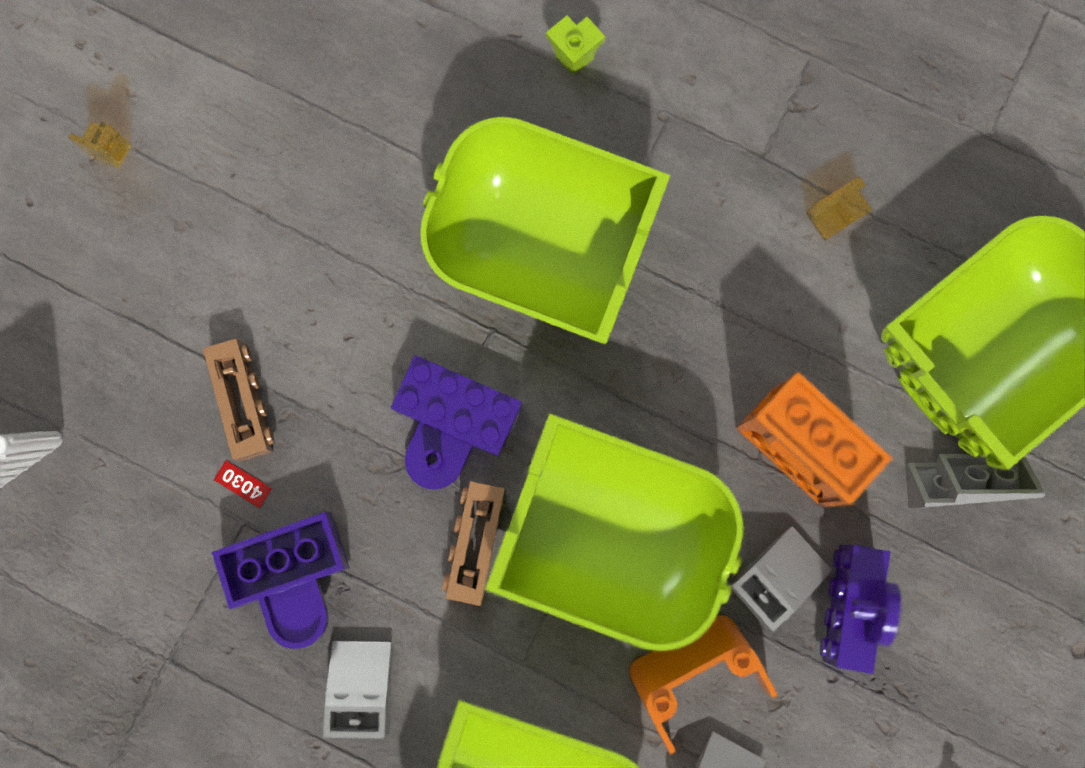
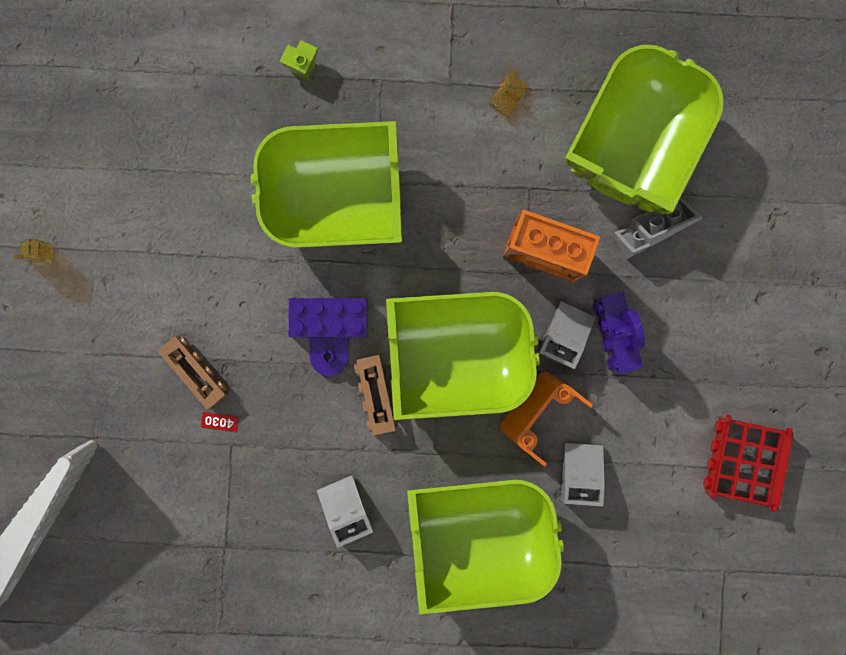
camera: 25 degrees left, 5 degrees up
(283, 575) = (270, 464): dark purple brick -> none

